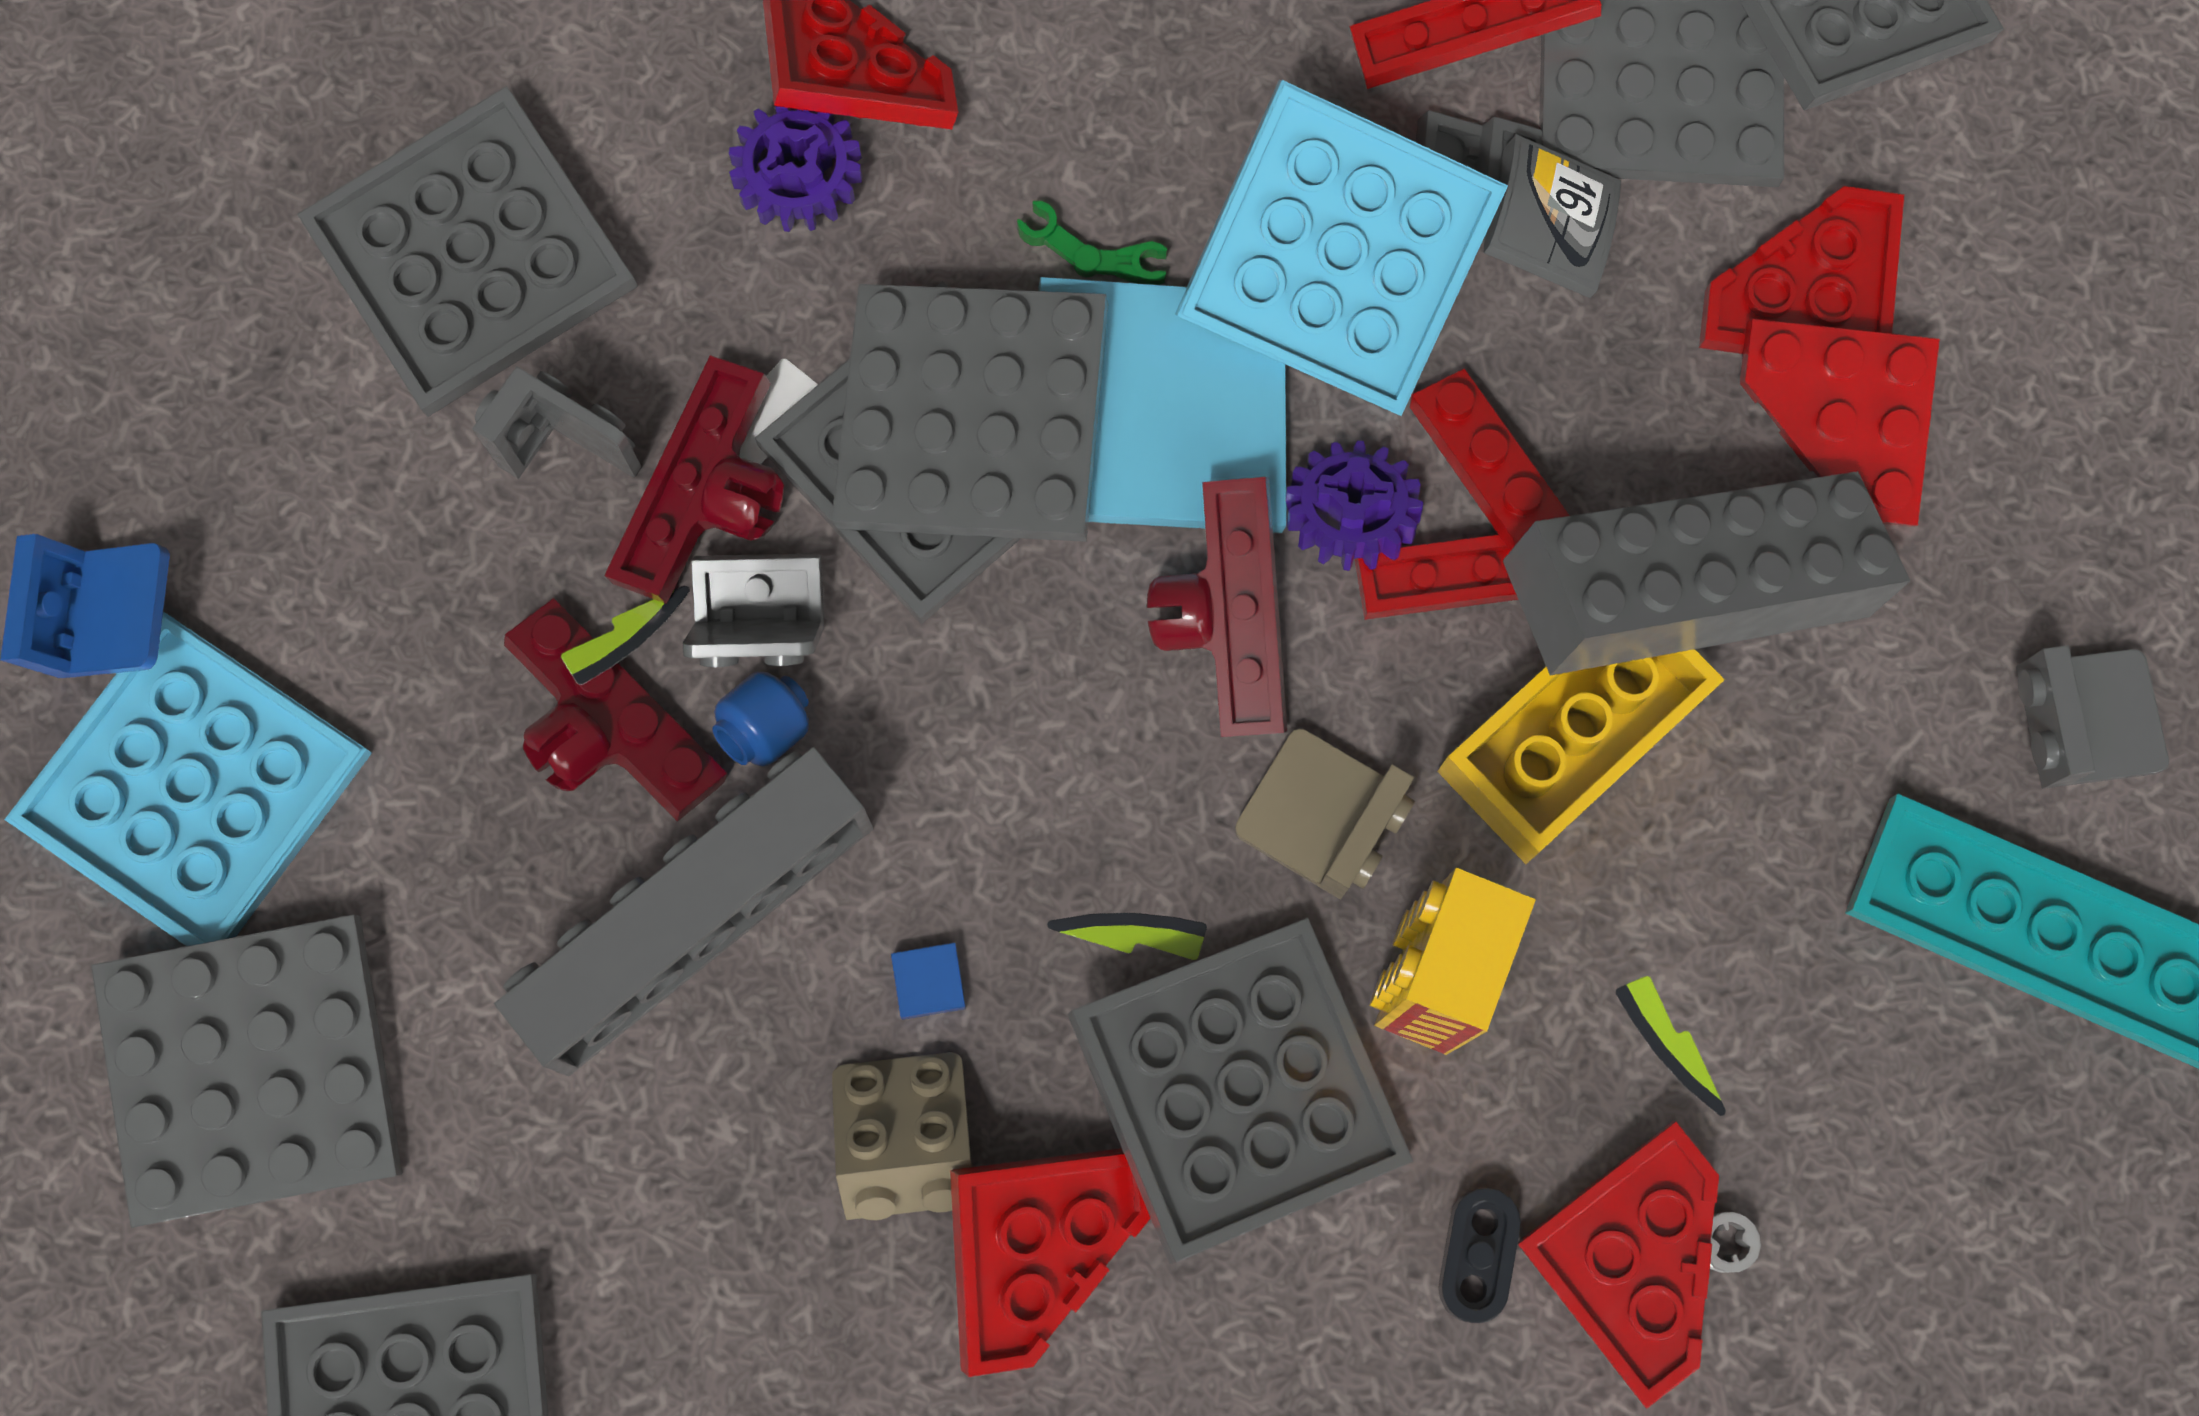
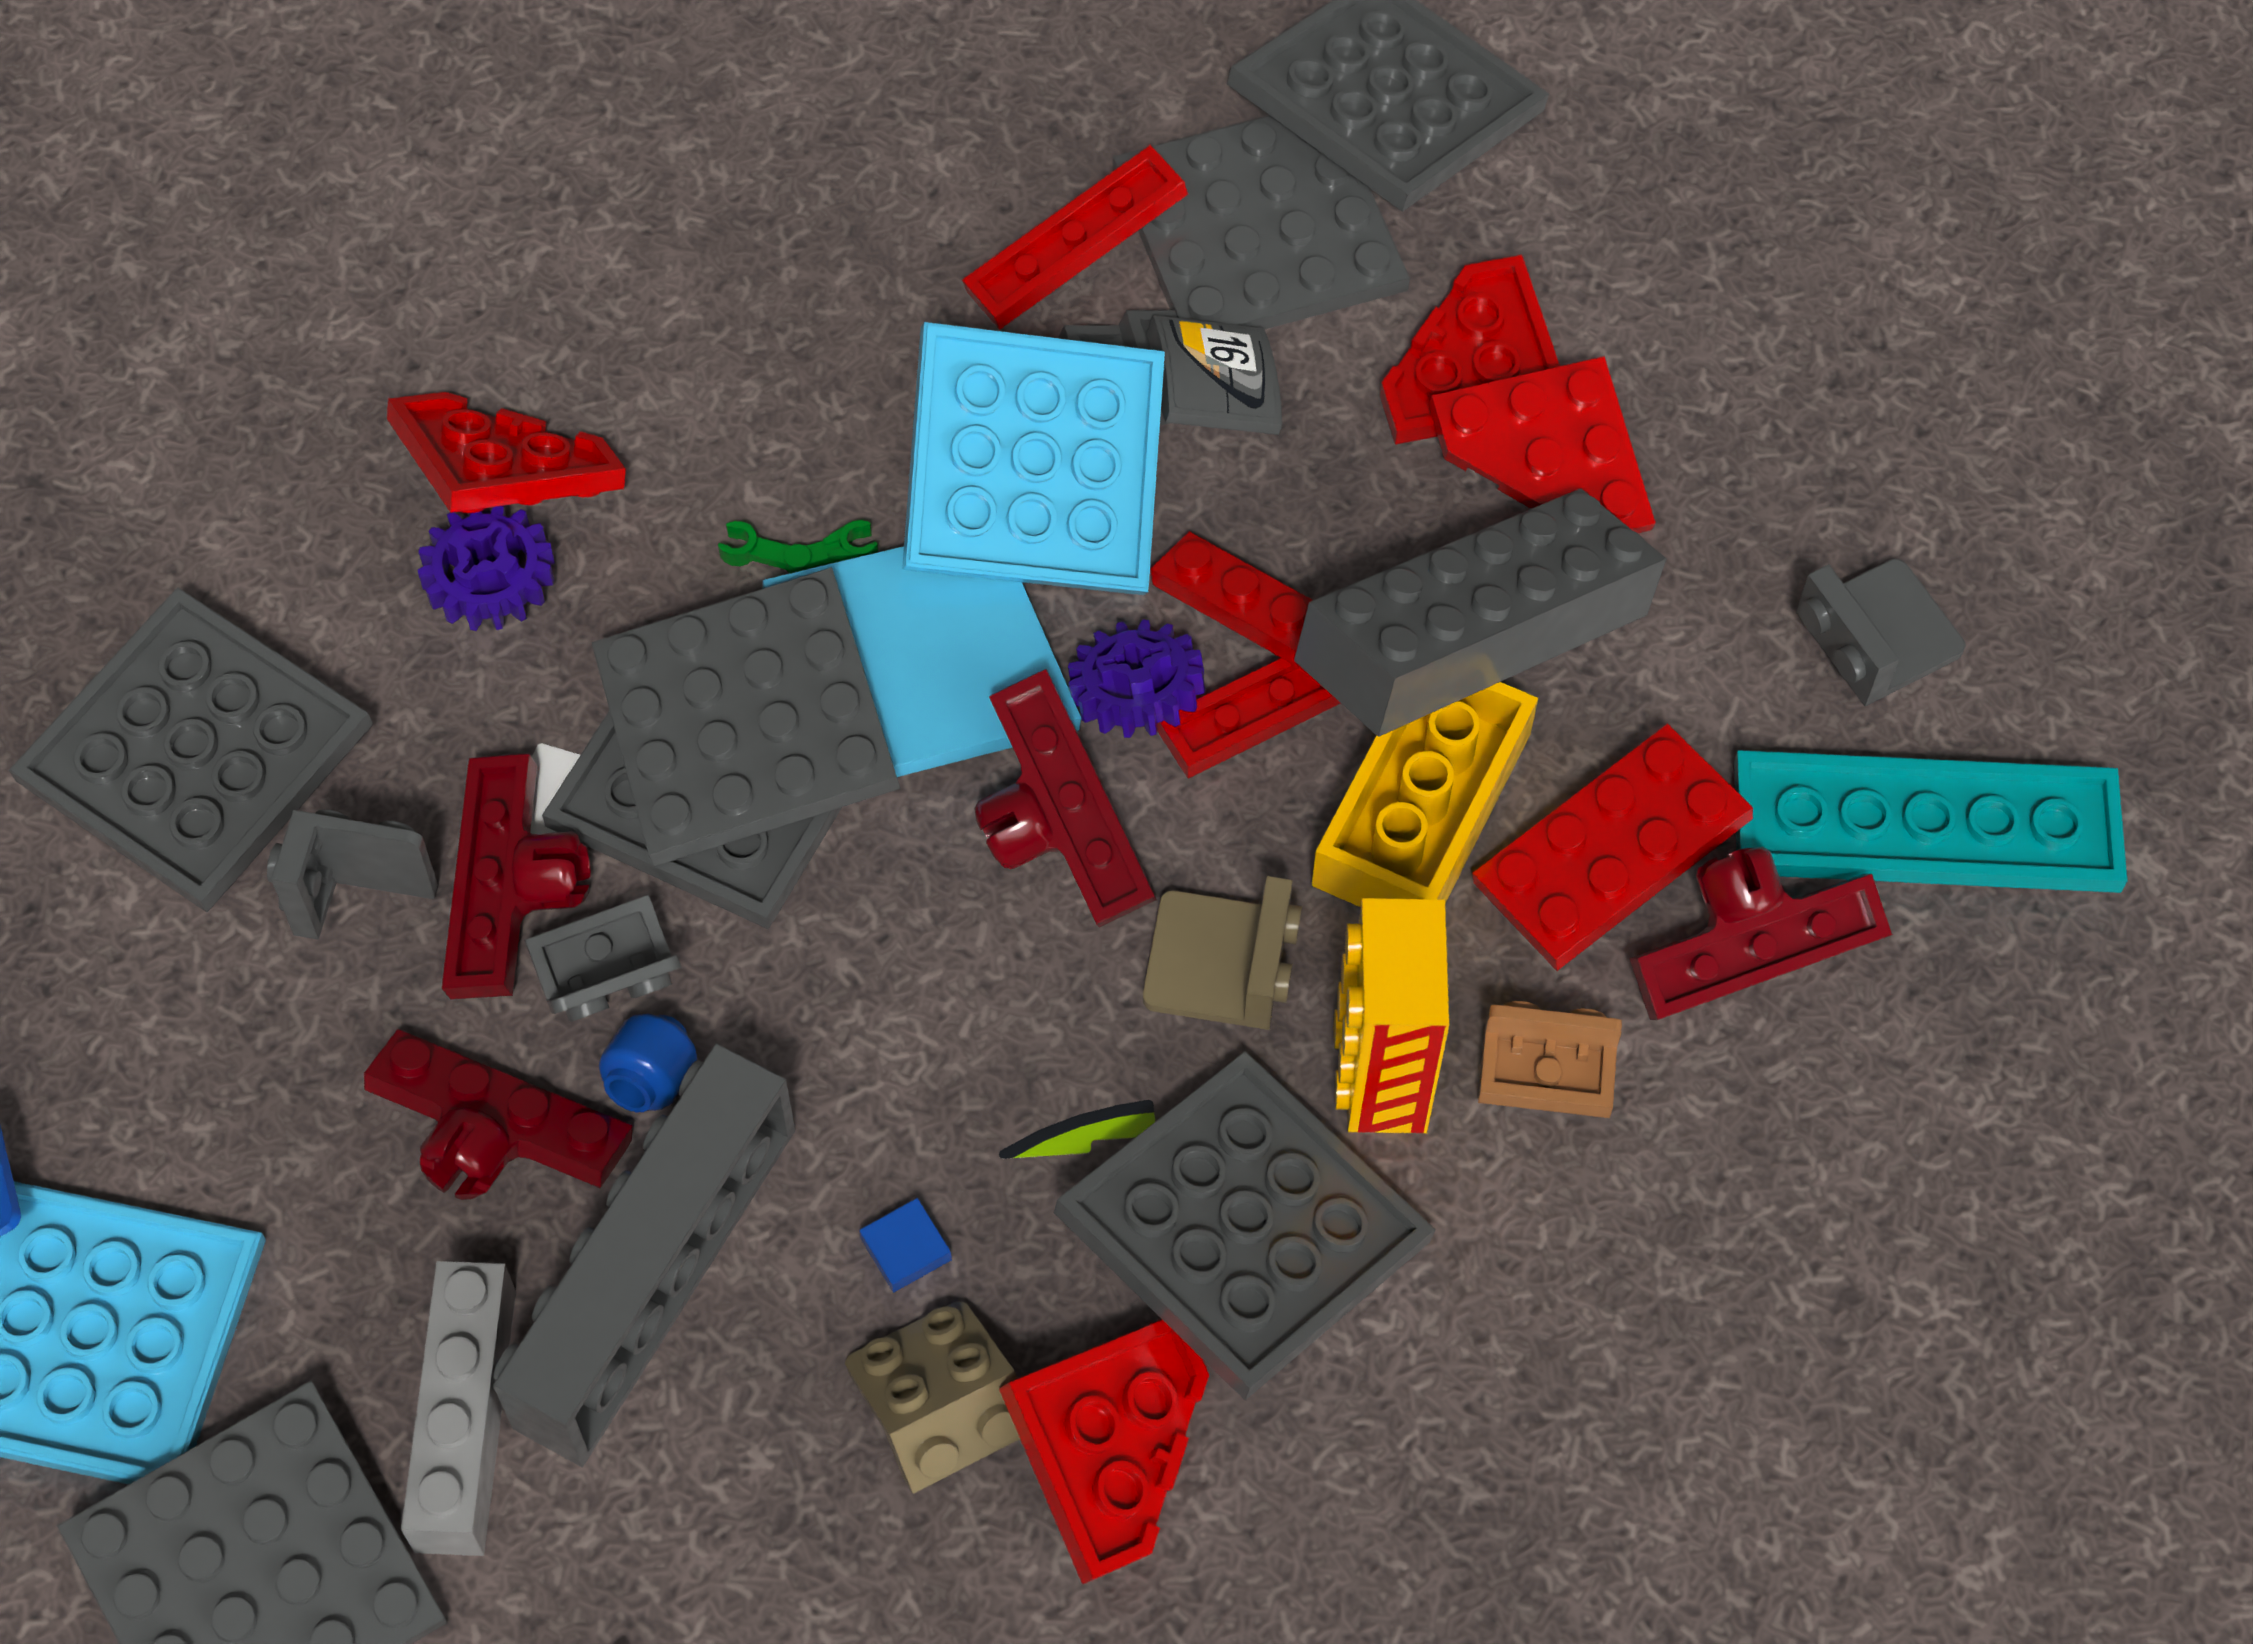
camera: 20 degrees left, 15 degrees down
(458, 1014) = (458, 1410): none -> light grey brick
(629, 633) = (485, 1035): sticker -> none
(1485, 1257) = (1533, 1296): black plate -> none
(1587, 1036) = (1549, 1059): none -> medium nougat bracket
(1637, 1260) = (1680, 1240): red plate -> none
(1672, 1048) = (1646, 1055): sticker -> none
(1738, 844) = (1612, 846): none -> red plate
(1746, 1236) = (1773, 1189): light grey bush -> none
(1837, 986) = (1756, 933): none -> dark red plate

